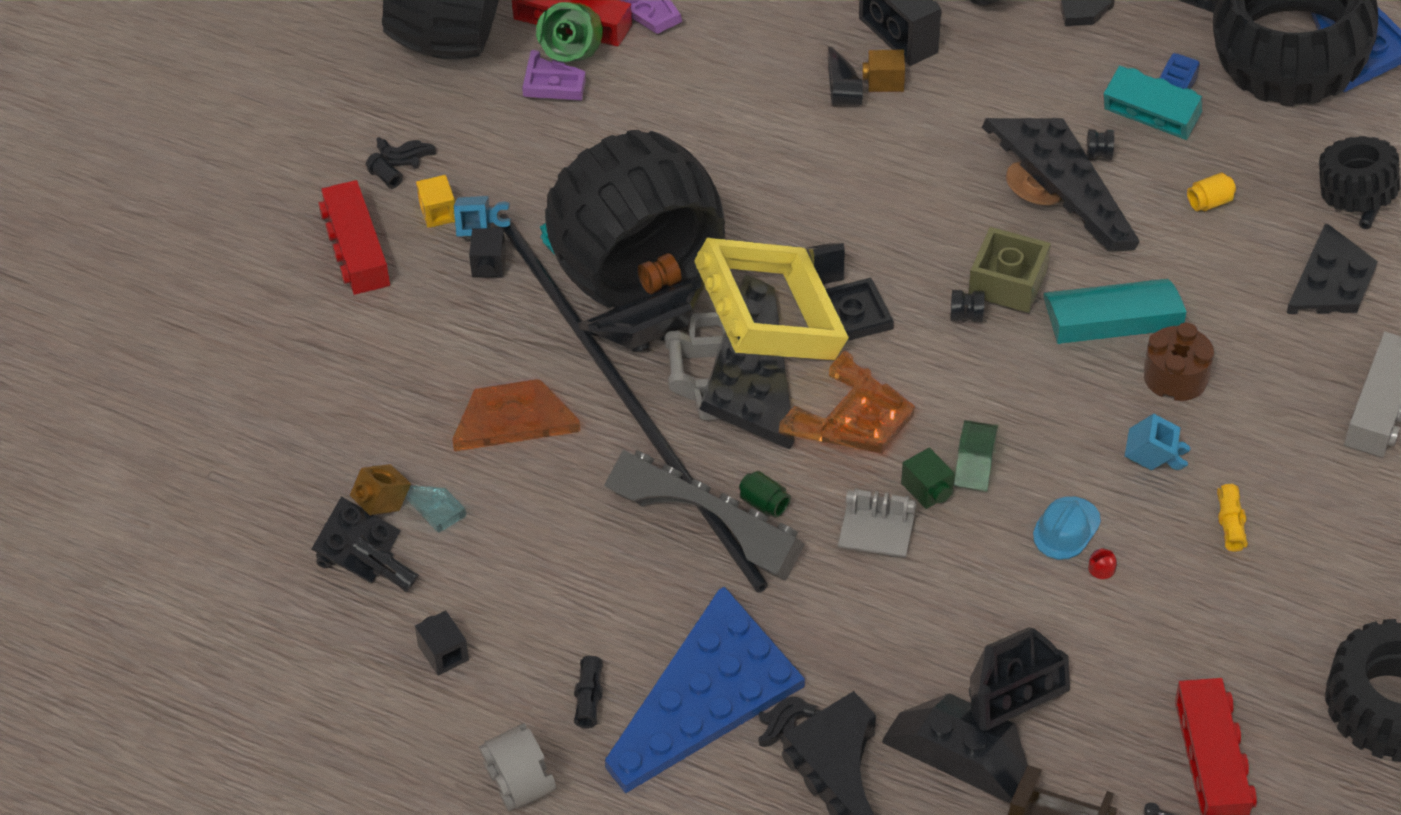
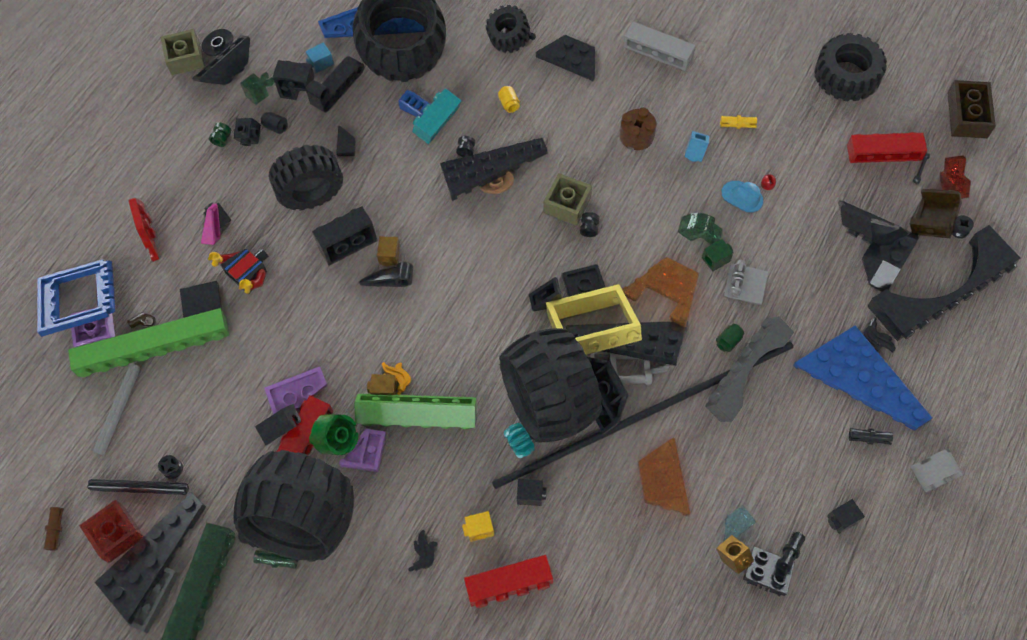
camera: 85 degrees left, 15 degrees up
(378, 165) = (443, 563): black pin -> none
(476, 213) = (500, 498): dark azure brick -> none
(613, 92) = (416, 411): none -> bright green brick
(652, 85) = (382, 384): none -> pearl gold brick
(677, 104) = (402, 376): none -> light orange piece
(1114, 310) = (591, 154): teal slope -> none

